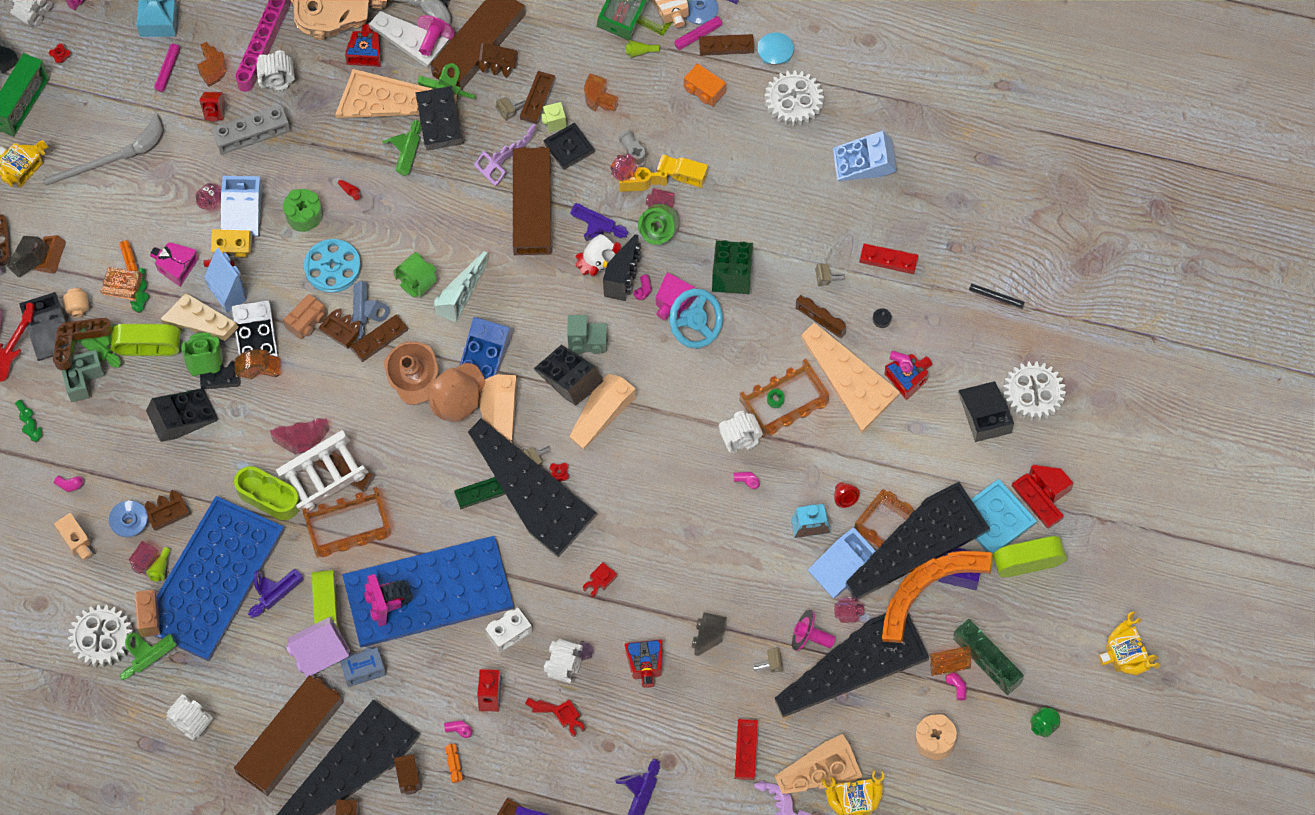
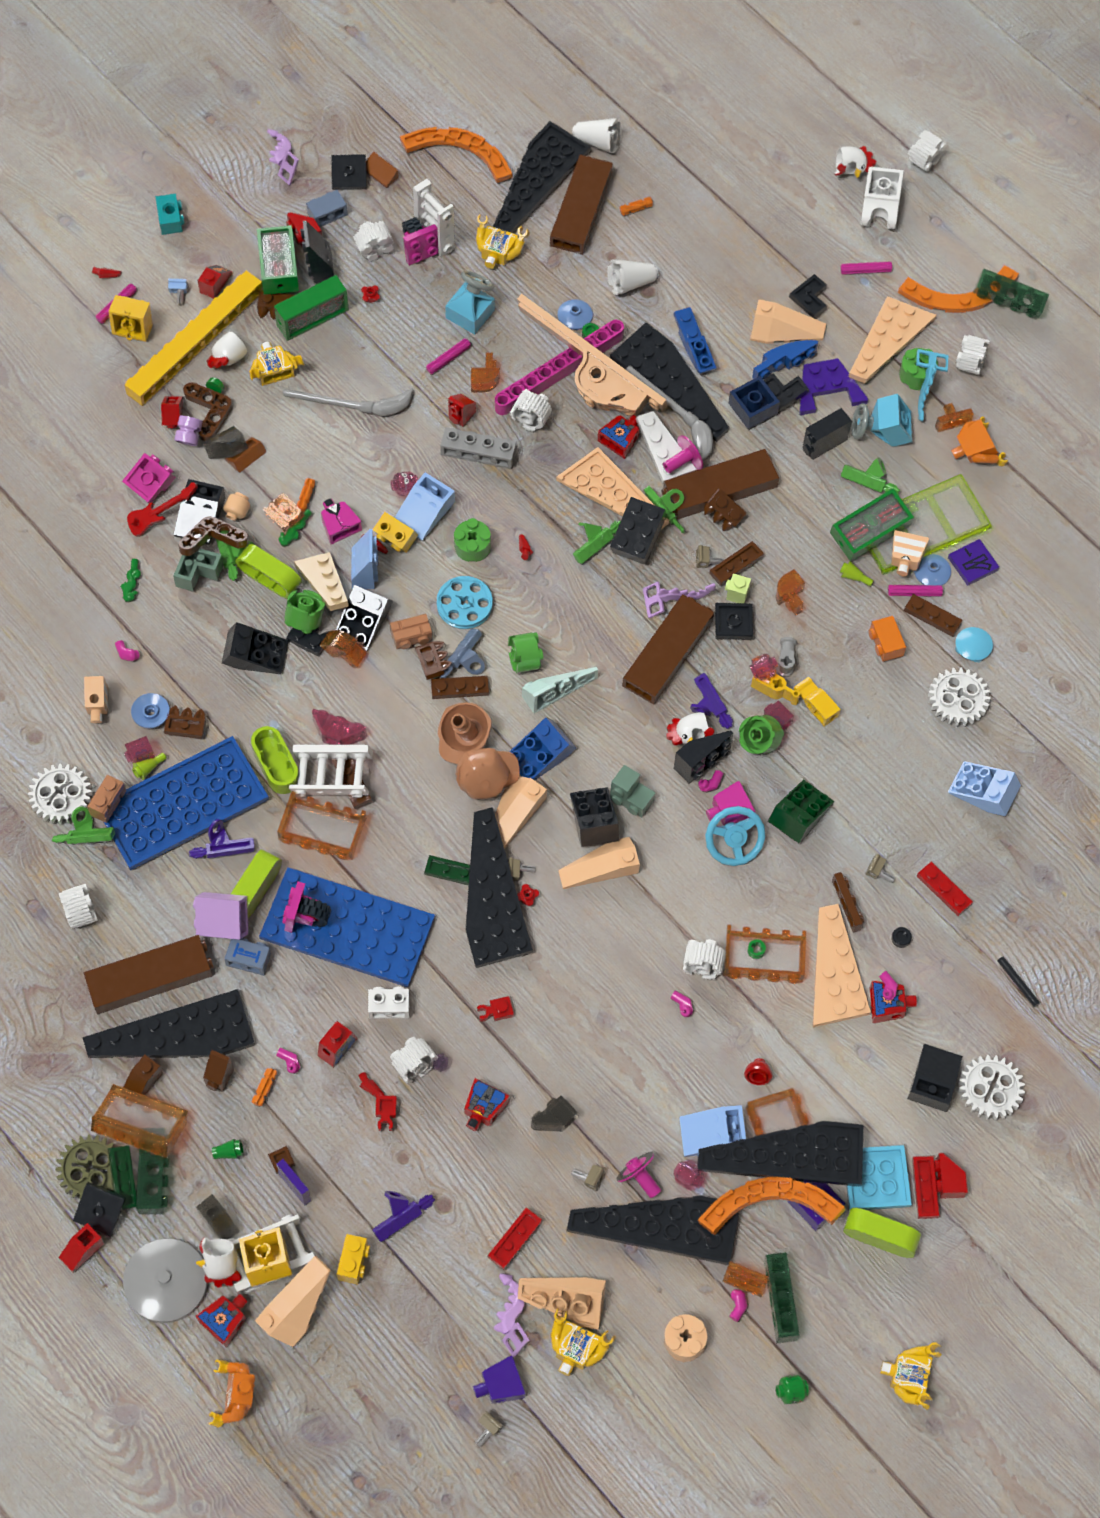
camera: 30 degrees right, 0 degrees up
(810, 521) = (711, 1076): medium azure torso -> none

